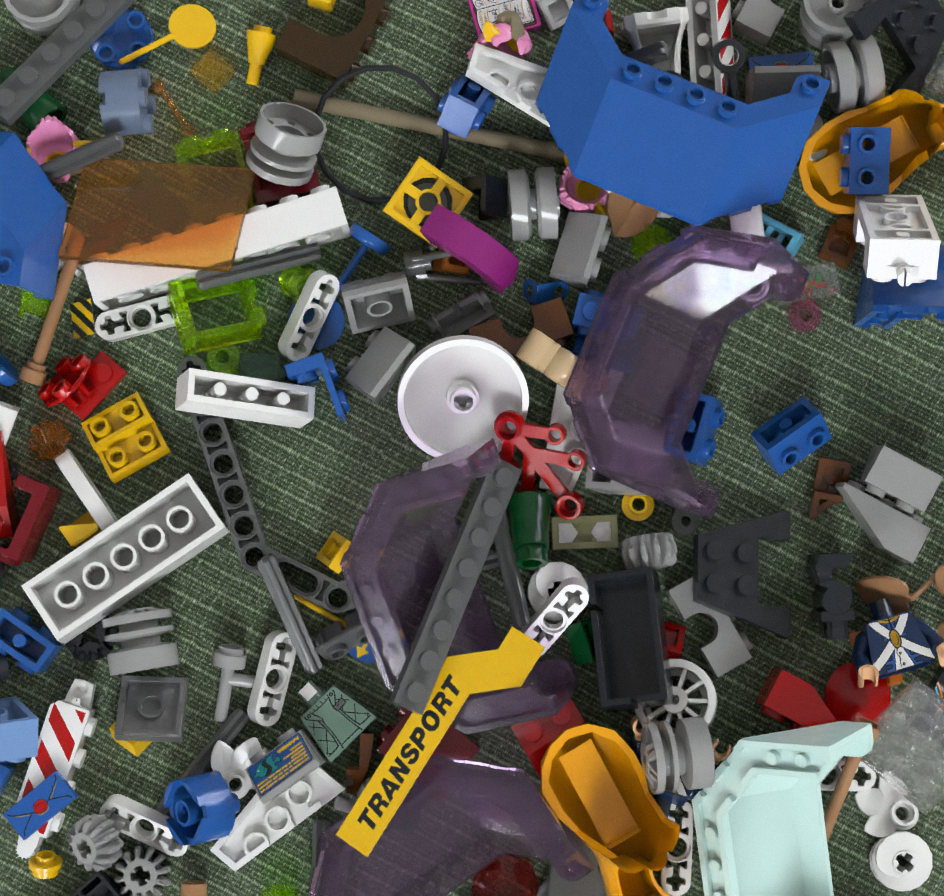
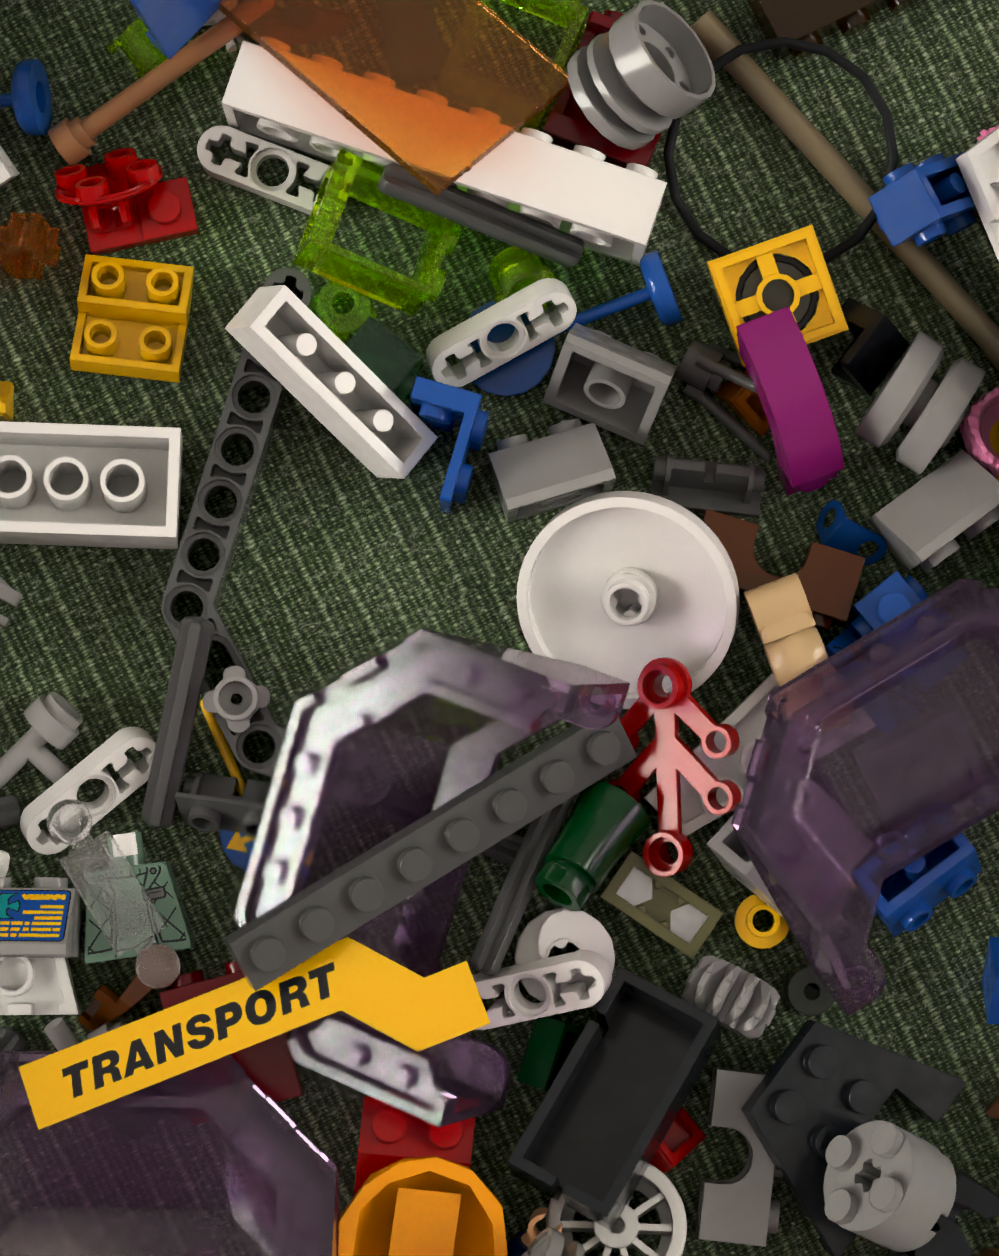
camera: 30 degrees right, 0 degrees up
(82, 318) = (191, 114): sticker -> none
(86, 489) = (26, 349): white beam -> none
(303, 576) = (233, 683): none -> light grey plate
(320, 718) = (113, 893): none -> clear plate
(333, 551) = (298, 679): yellow plate -> none
(788, 585) = (887, 1185): none -> light grey brick

